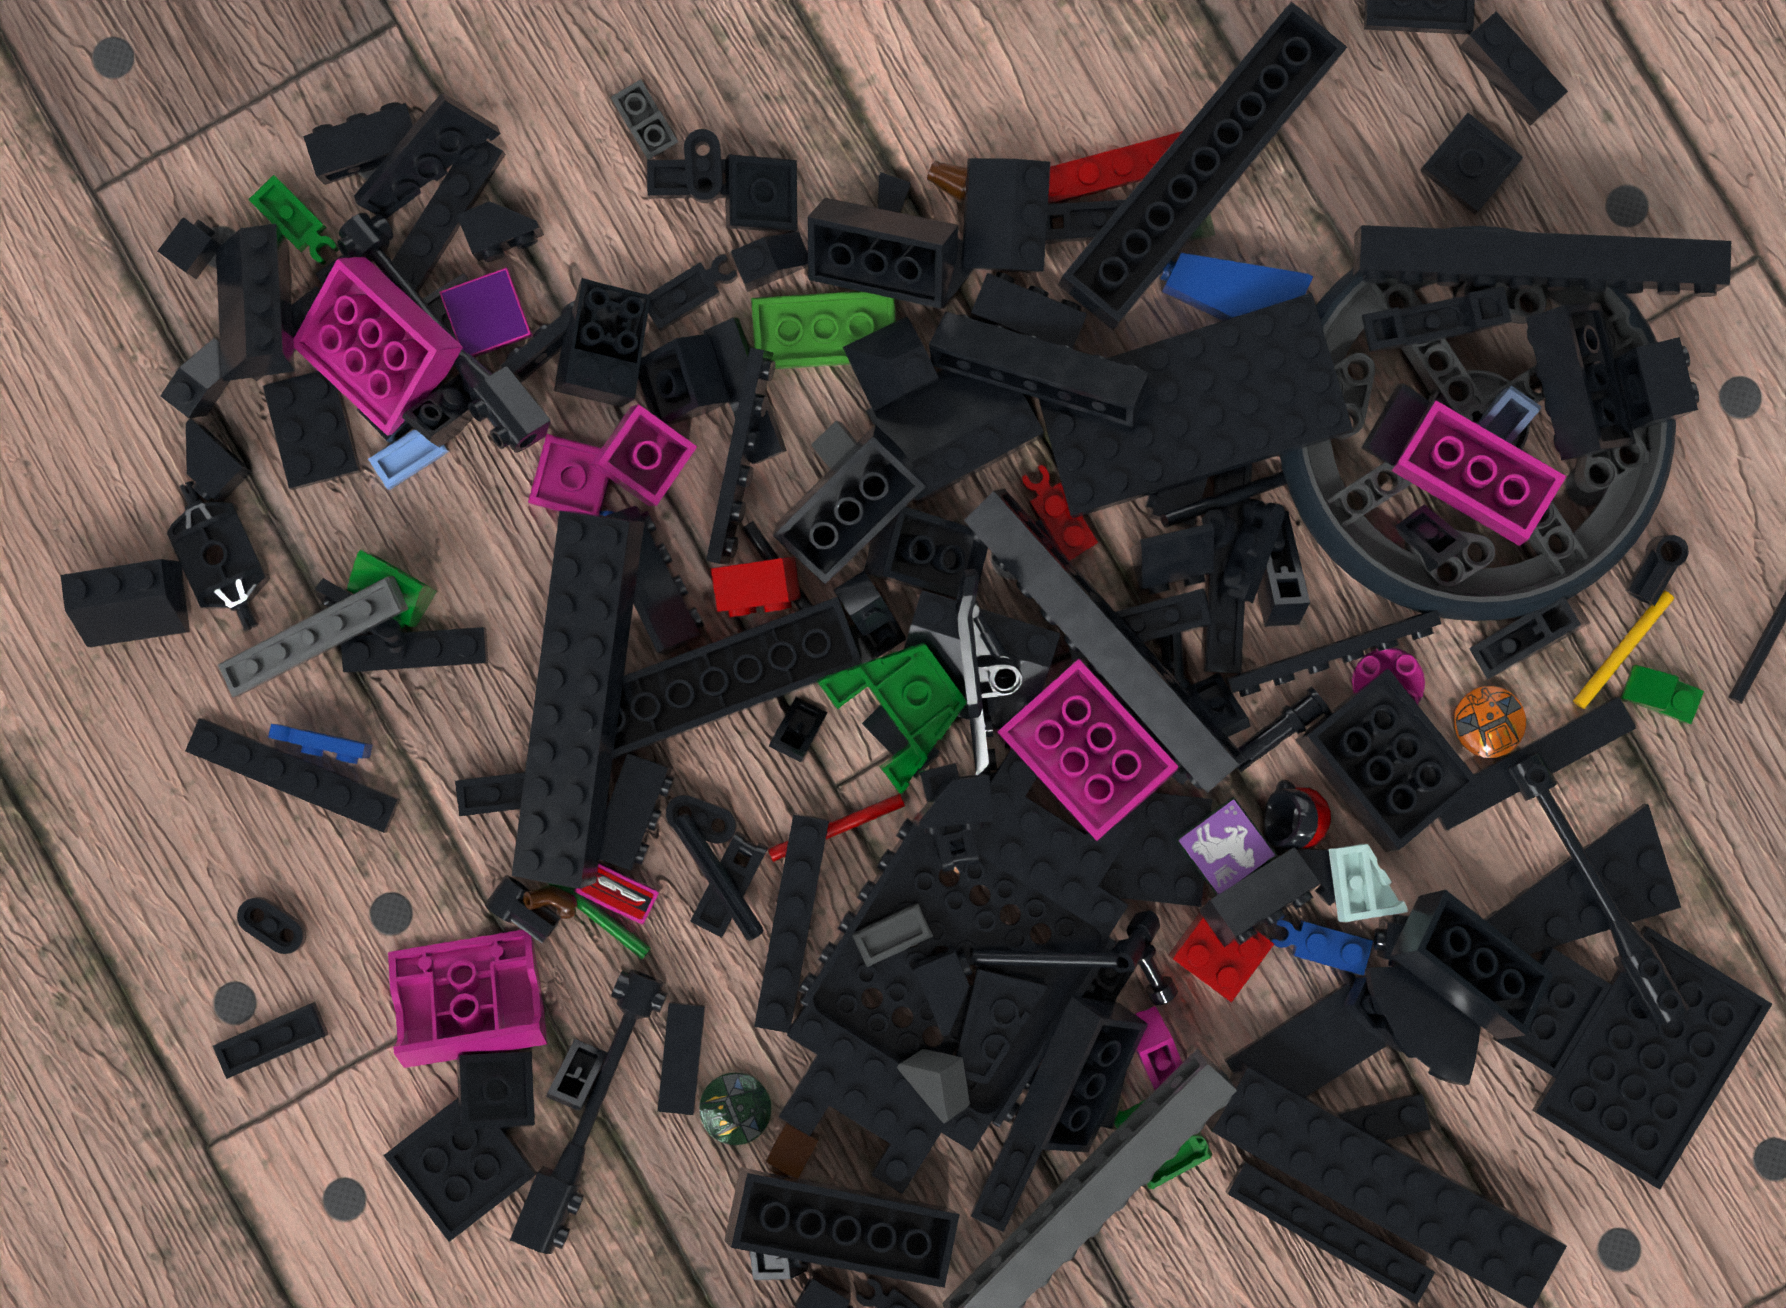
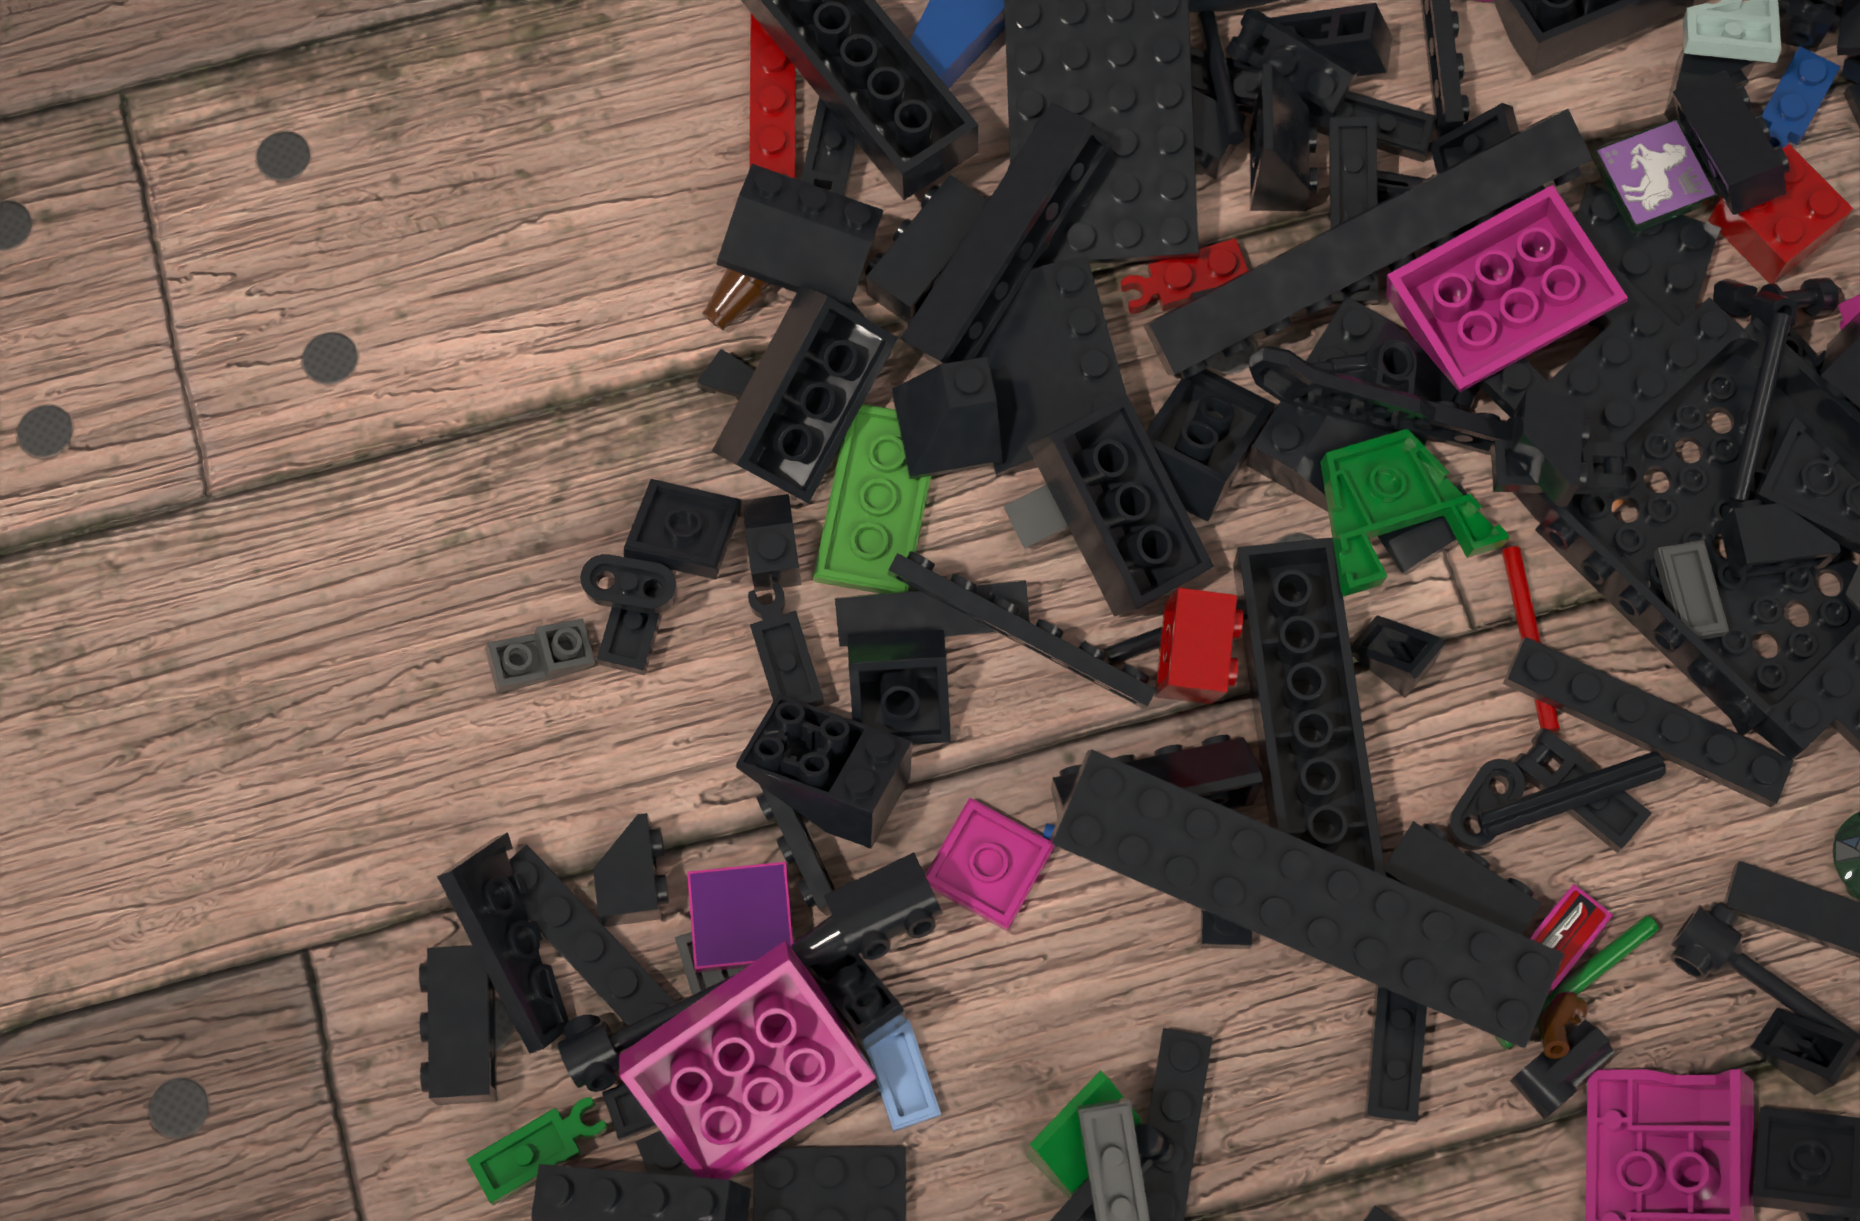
camera: 80 degrees left, 15 degrees down
(643, 455) = (988, 752): dark pink brick -> none
(870, 614) = (1262, 519): black slope -> none
(1292, 720) = (1508, 72): black pin -> none
(1295, 817) = (1630, 92): black piece -> none

